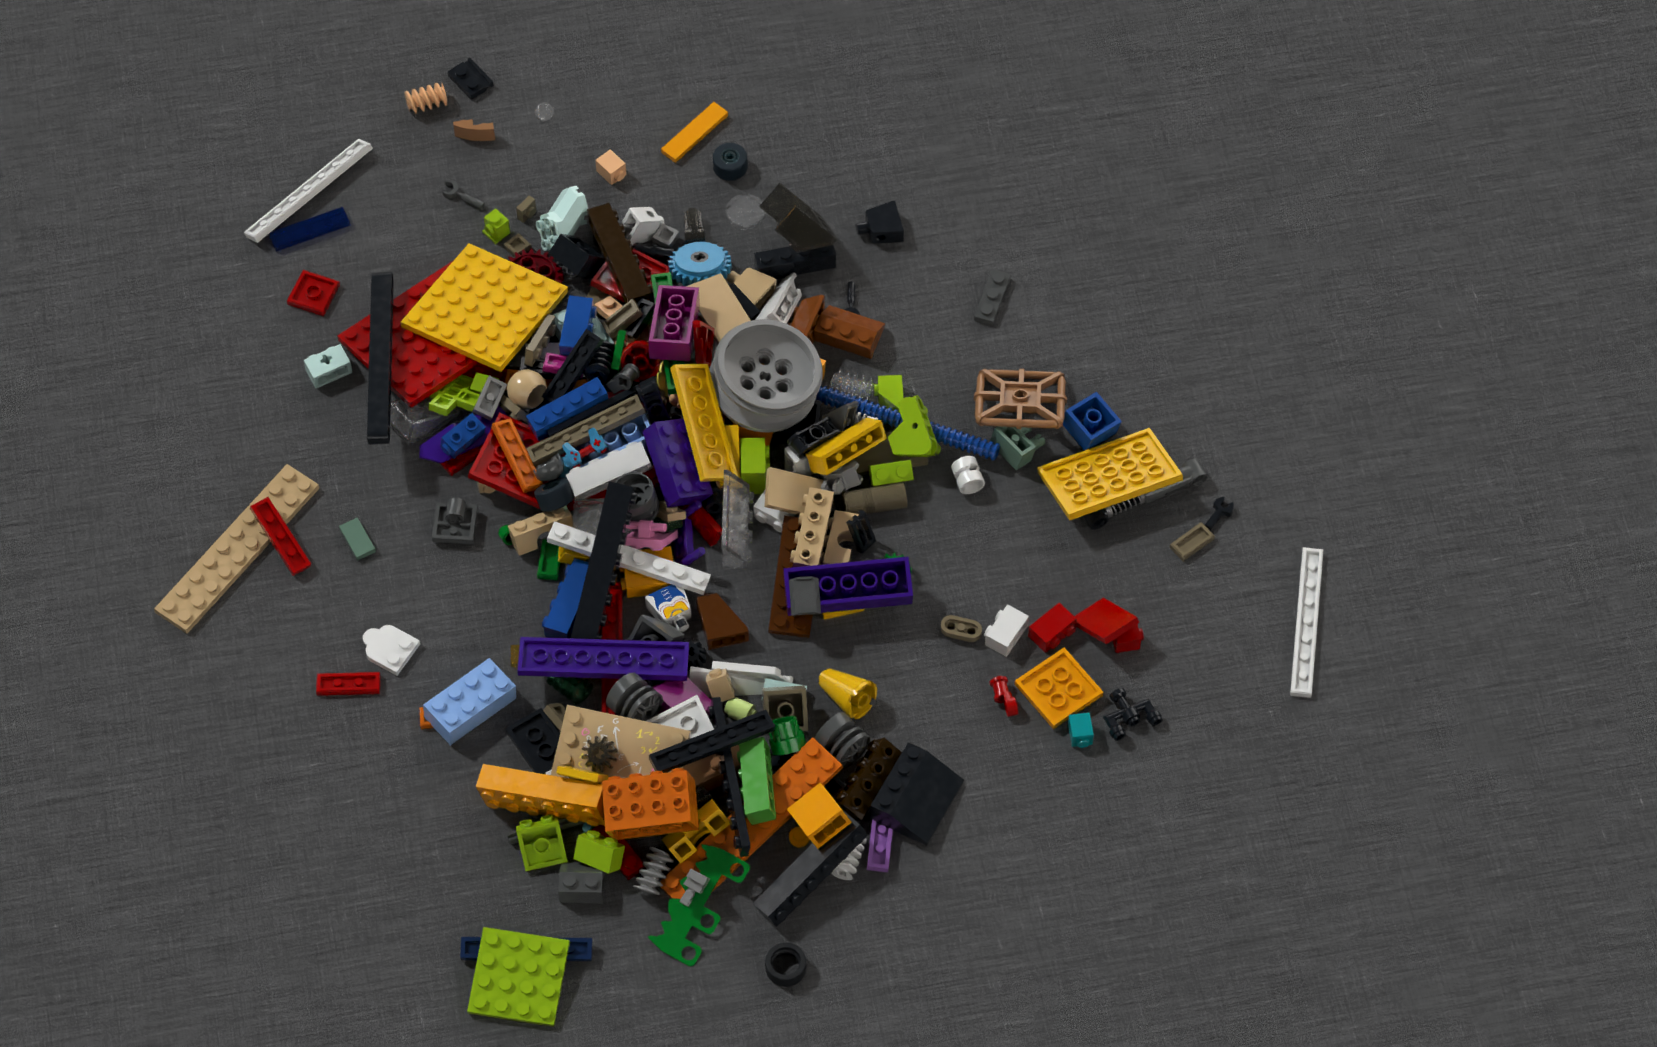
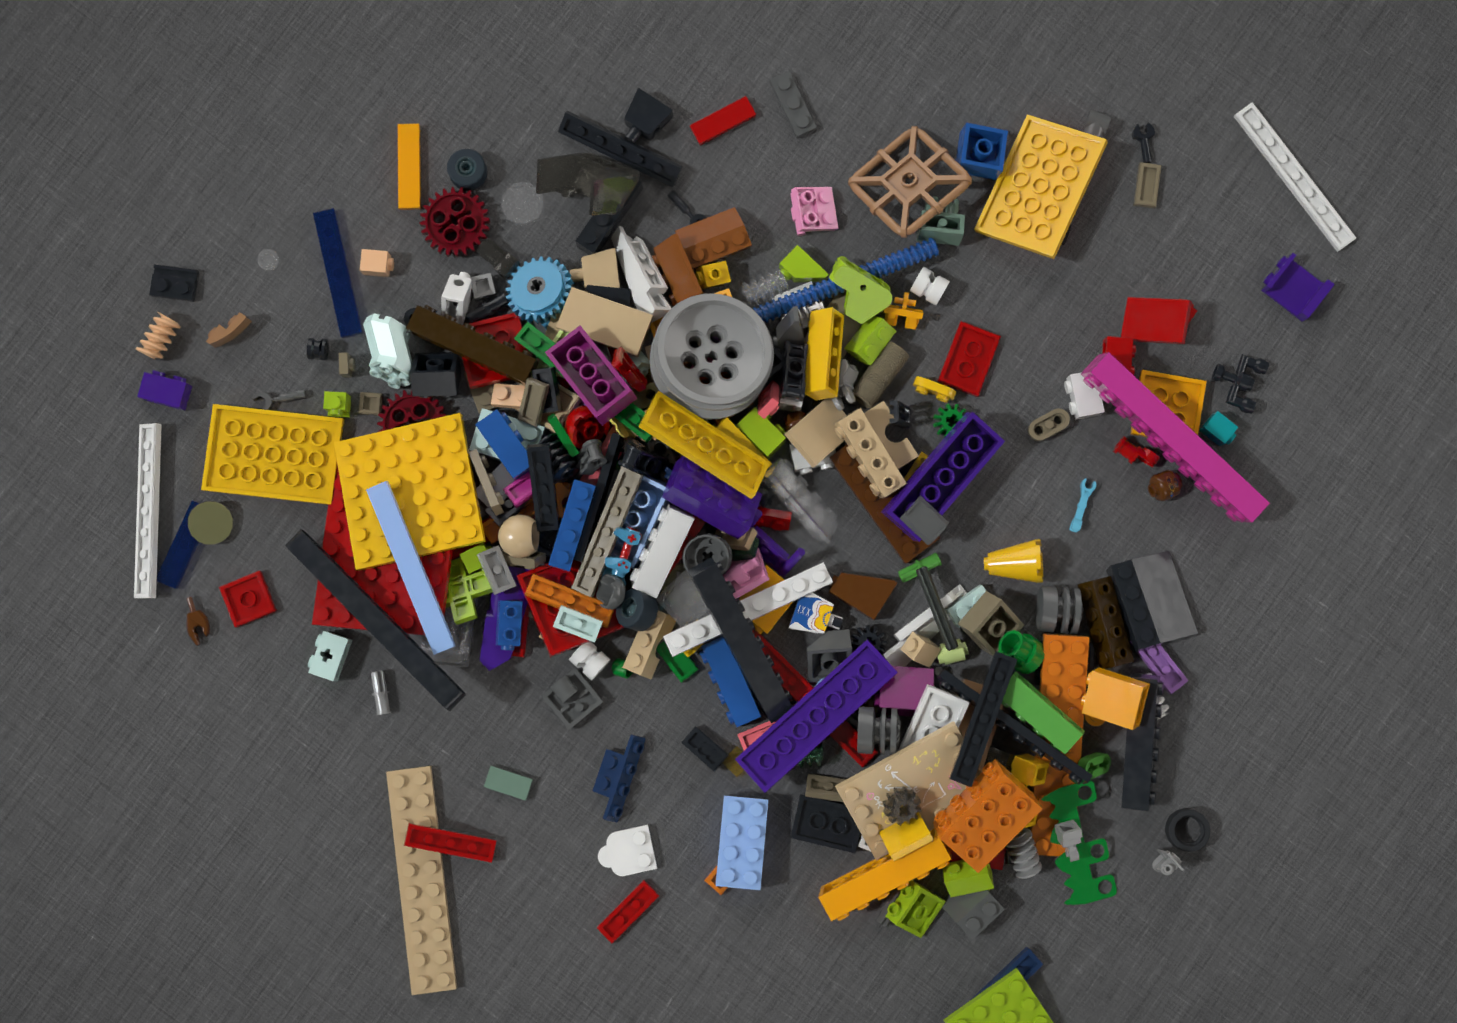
camera: 45 degrees left, 25 degrees up
(267, 276) = (195, 619): none -> reddish brown hand
(335, 416) = (380, 692): none -> light grey axle
(339, 227) = (210, 522): none -> olive tile
(396, 132) = (165, 391): none -> dark purple brick
(421, 221) = (271, 454): none -> yellow plate
(432, 595) = (616, 776): none -> dark blue bracket
(436, 345) = (410, 567): none -> light blue tile
(491, 507) = (589, 660): none -> white wheel
(507, 468) = (577, 623): none -> light aqua plate
(508, 627) = (705, 749): none -> black plate
(518, 186) = (317, 349): none -> black wheel
(581, 154) = (338, 273): none -> clear blue tile
(688, 184) = (465, 237): none -> dark red gear
(746, 964) = (1166, 862): none -> light grey hinge
(757, 666) = (937, 608): none -> pearl dark grey axle
(765, 857) = (1095, 763): none -> bright green beam
(775, 442) = (768, 400): none -> coral plate
(775, 641) = (910, 572): none -> bright green axle
(826, 347) = (713, 275): none -> yellow brick
(845, 229) = (620, 149): none -> black plate
(906, 544) = (927, 386): none -> yellow plate
(915, 706) = (1076, 523): none -> medium azure piece
(933, 269) = (722, 120): none -> red tile
(936, 484) = (912, 314): none -> light orange hips
(937, 366) = (813, 209): none -> bright pink plate
(949, 545) = (969, 359): none -> red tile
(1003, 732) = (1165, 485): none -> reddish brown head
(1035, 698) = (1174, 438): none -> dark pink brick
(1232, 688) = (1295, 288): none -> dark purple panel

